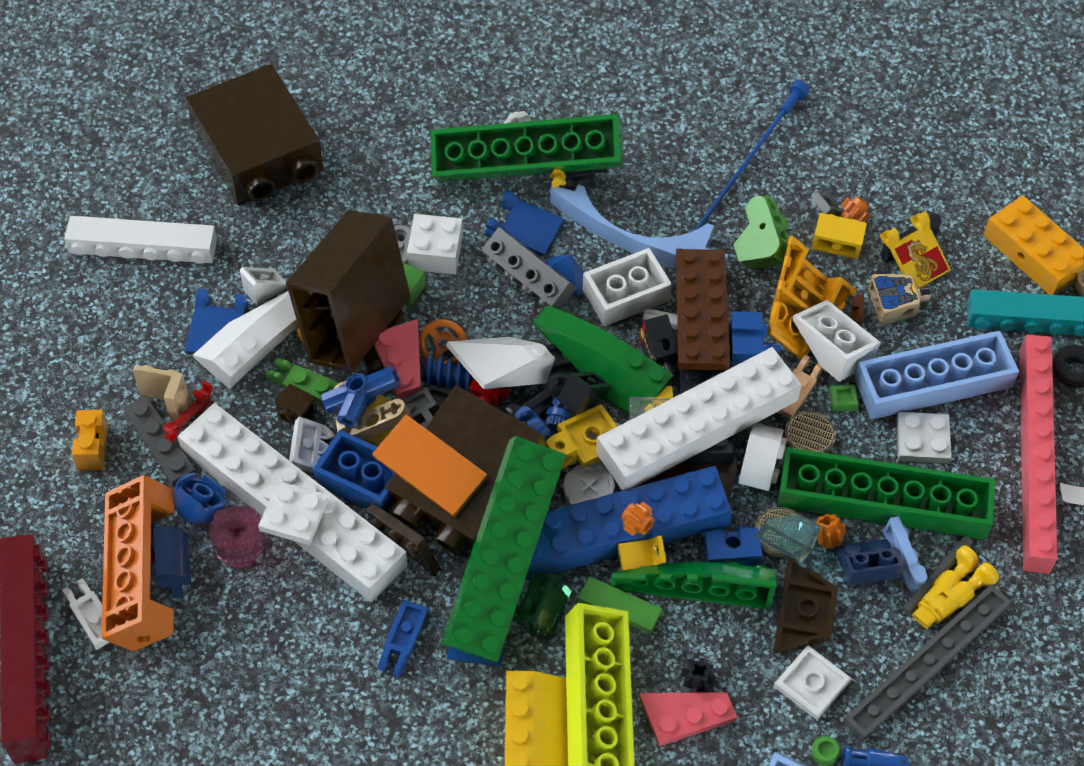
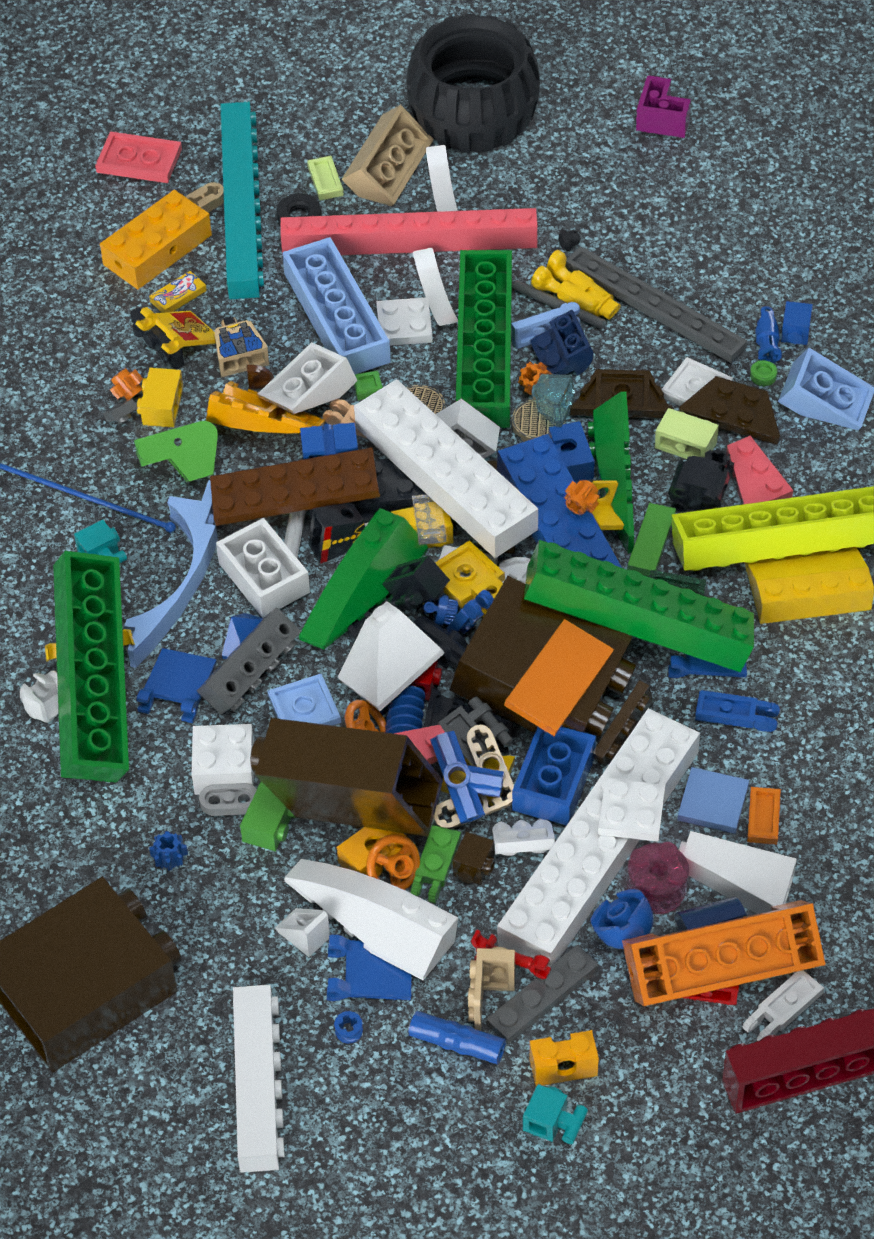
camera: 95 degrees left, 5 degrees down
(45, 422) = (549, 1112): none -> teal brick
(125, 383) = (457, 1037): none -> blue axle
(169, 312) = (355, 1021): none -> blue bush
(224, 608) = (740, 871): none -> white slope
(288, 640) = (764, 815): none -> orange tile
(294, 345) = (405, 867): none -> orange piece
(313, 601) = (713, 800): none -> medium blue tile
(357, 200) = (168, 850): none -> blue gear
(483, 309) = (305, 702): none -> light blue tile
(666, 647) = (698, 484): none -> black brick
(674, 178) = (99, 540): none -> teal brick
(741, 655) = (685, 434): none -> yellowish green brick
(773, 707) = (735, 409): none -> dark brown wing
(972, 262) = (178, 293): none -> yellow tile
(978, 467) = (434, 287): none -> white sticker
(1028, 597) = (568, 239): none -> black piece

